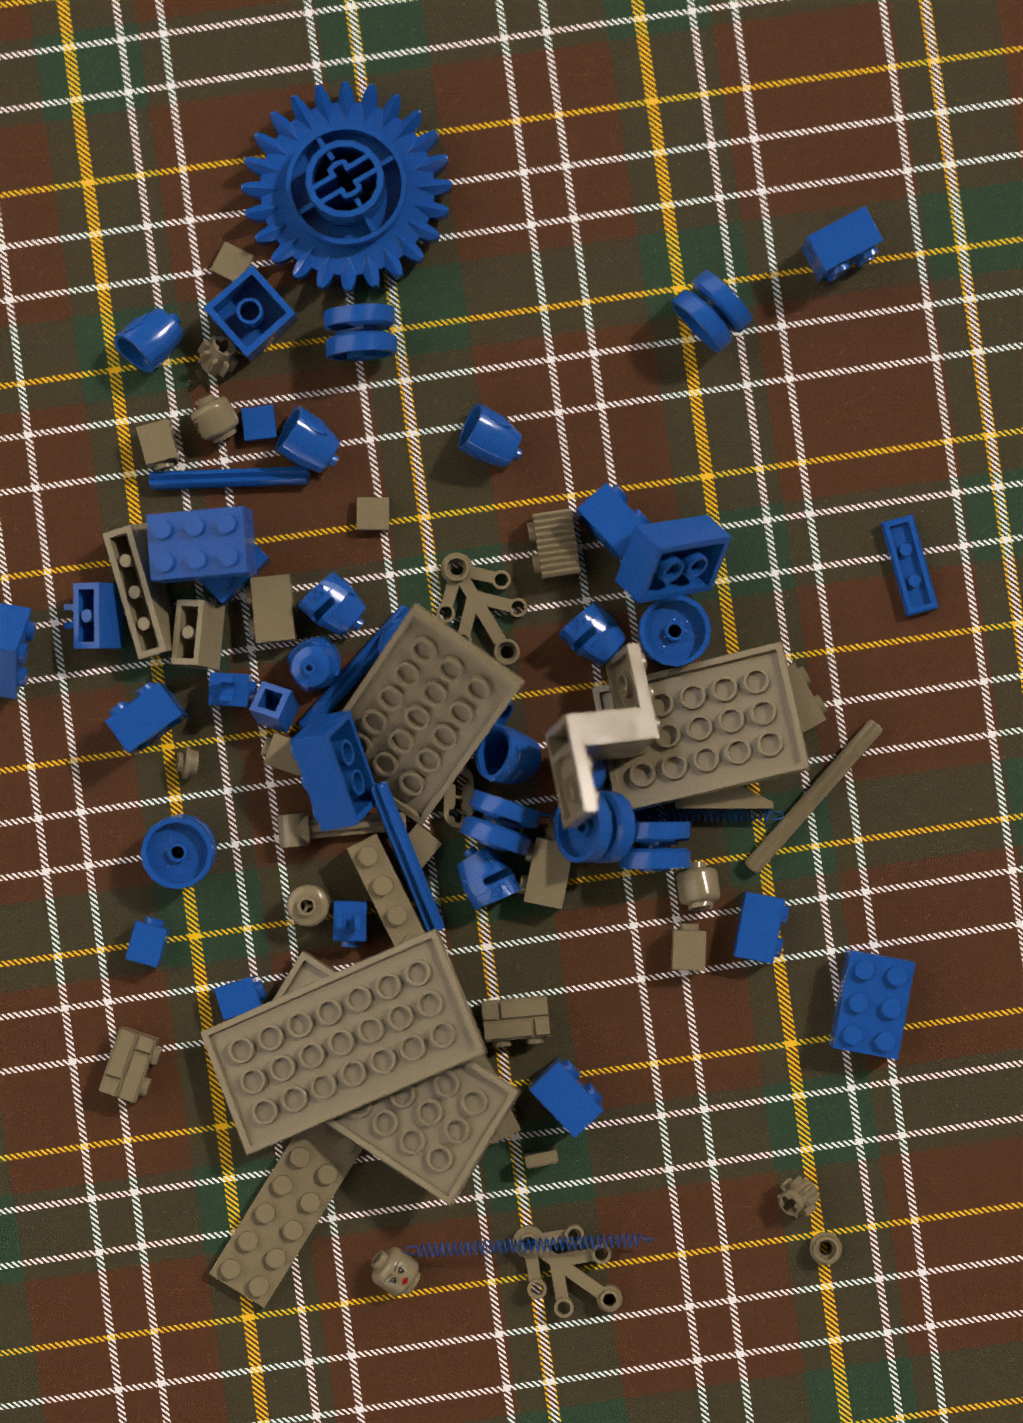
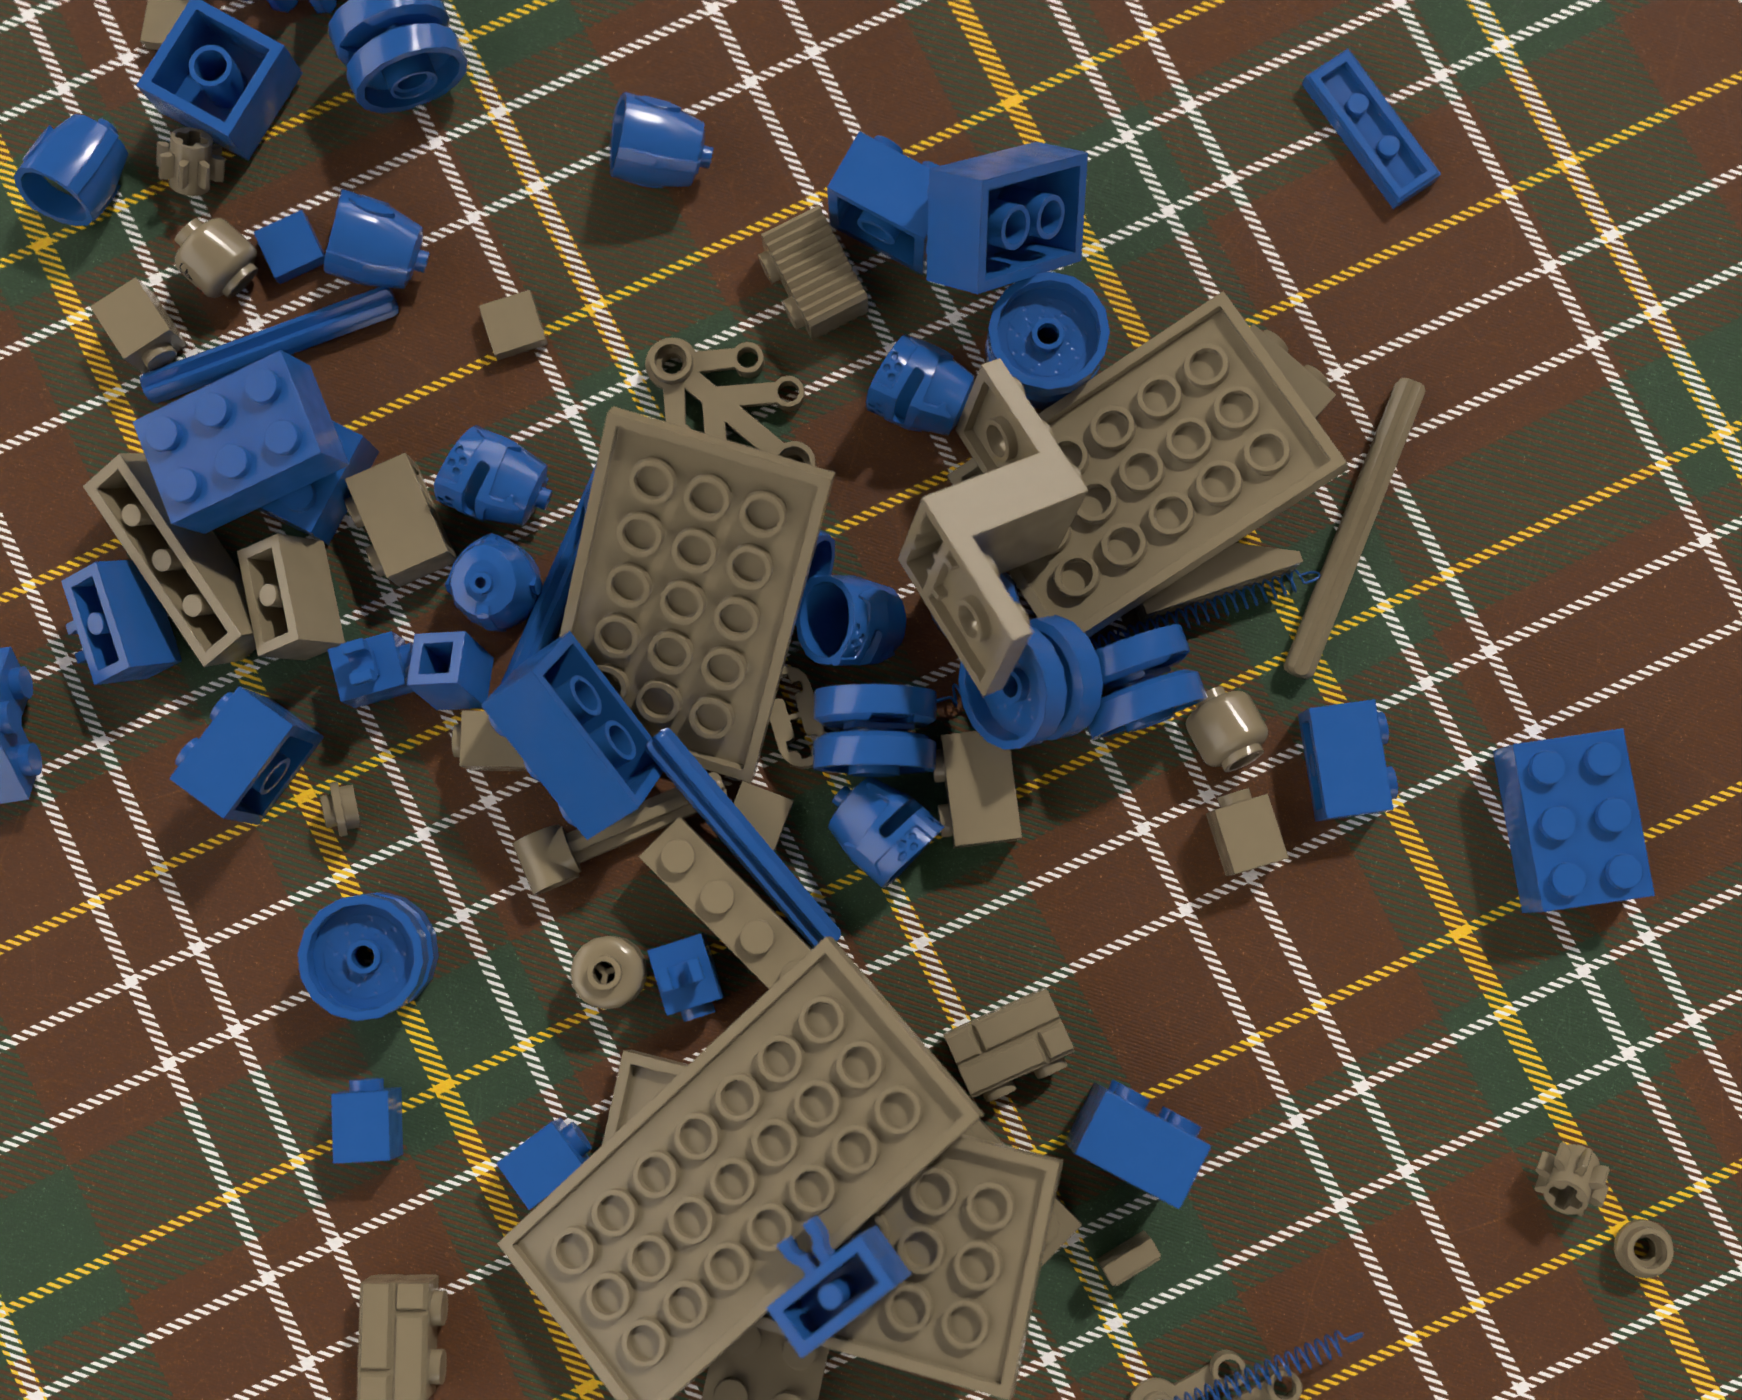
camera: 15 degrees left, 5 degrees down
(378, 1116) = (836, 1287): none -> blue brick

